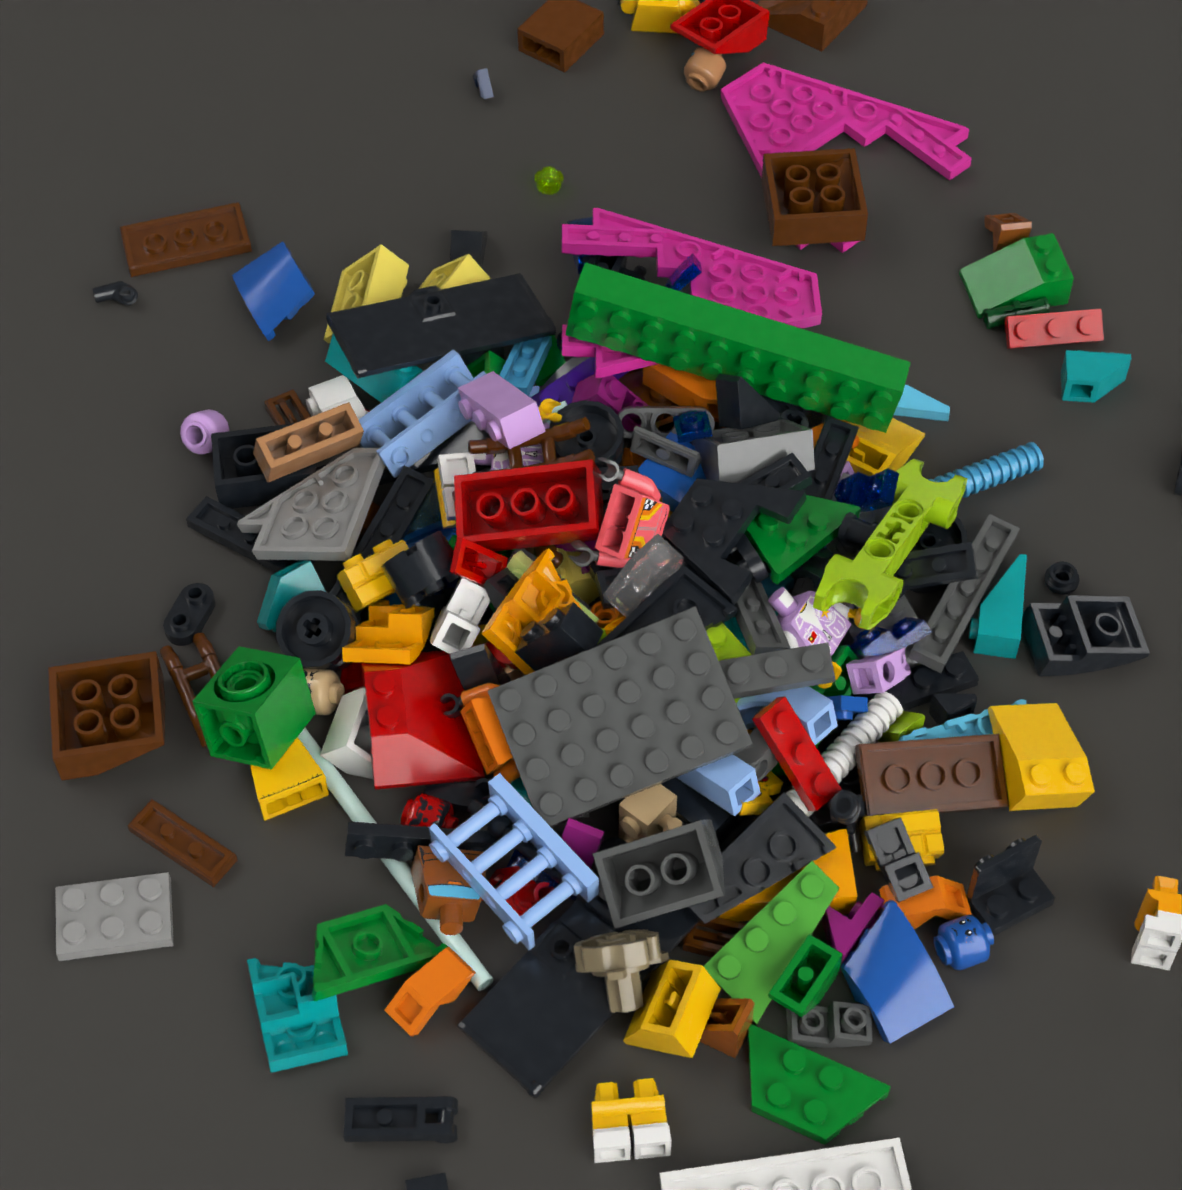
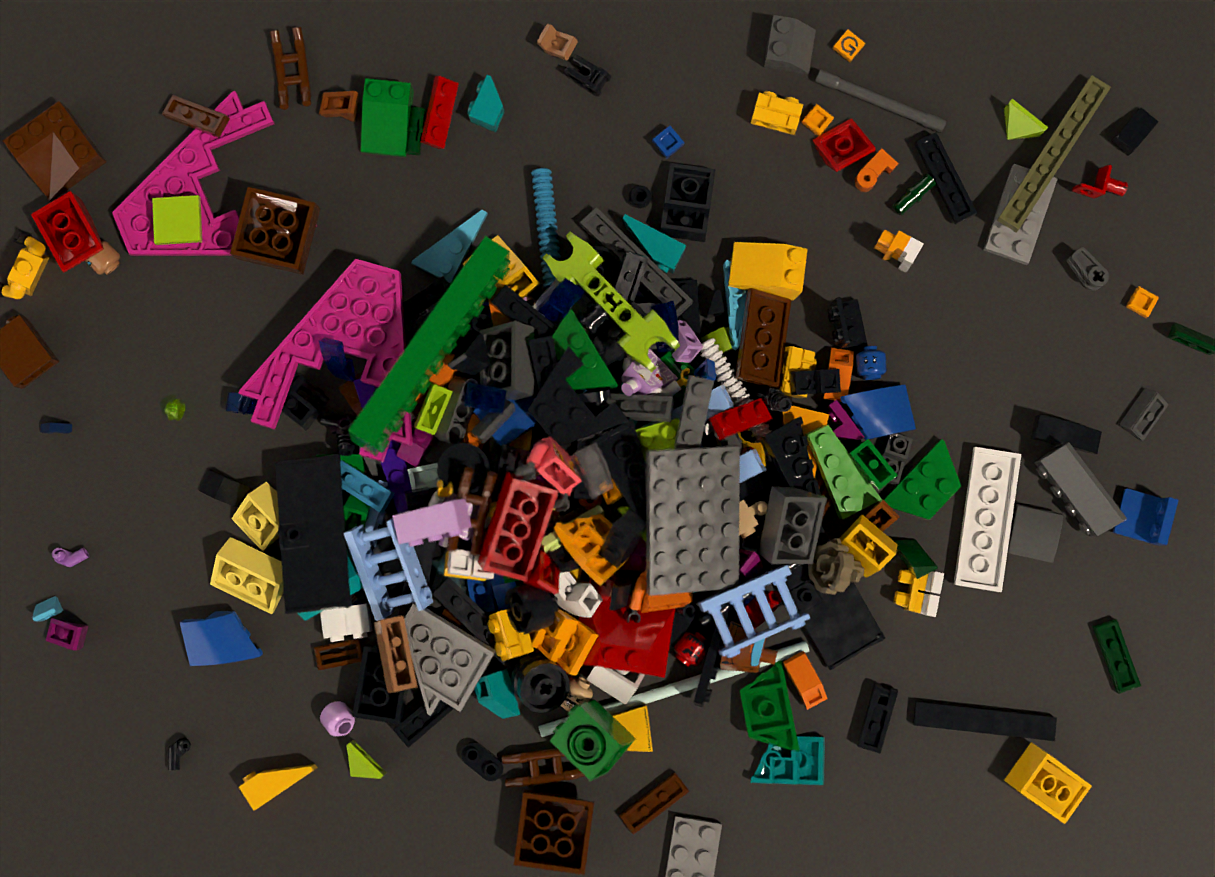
camera: 70 degrees left, 30 degrees up
(94, 386) = (269, 783): none -> yellow slope
(155, 478) = (362, 764): none -> lime slope
(185, 239) = (138, 691): reddish brown tile -> none
(236, 157) = (66, 634): none -> magenta slope
(259, 133) = (47, 609): none -> medium azure slope
(330, 135) = (68, 558): none -> medium lavender arm
(654, 388) = (433, 409): none -> lime slope
(680, 1087) = (915, 557): none -> dark green slope
(782, 113) = (177, 220): none -> lime tile
(917, 102) = (196, 116): none -> reddish brown tile
(1032, 164) = (281, 59): none -> reddish brown piece
(1157, 588) = (668, 142): none -> blue plate

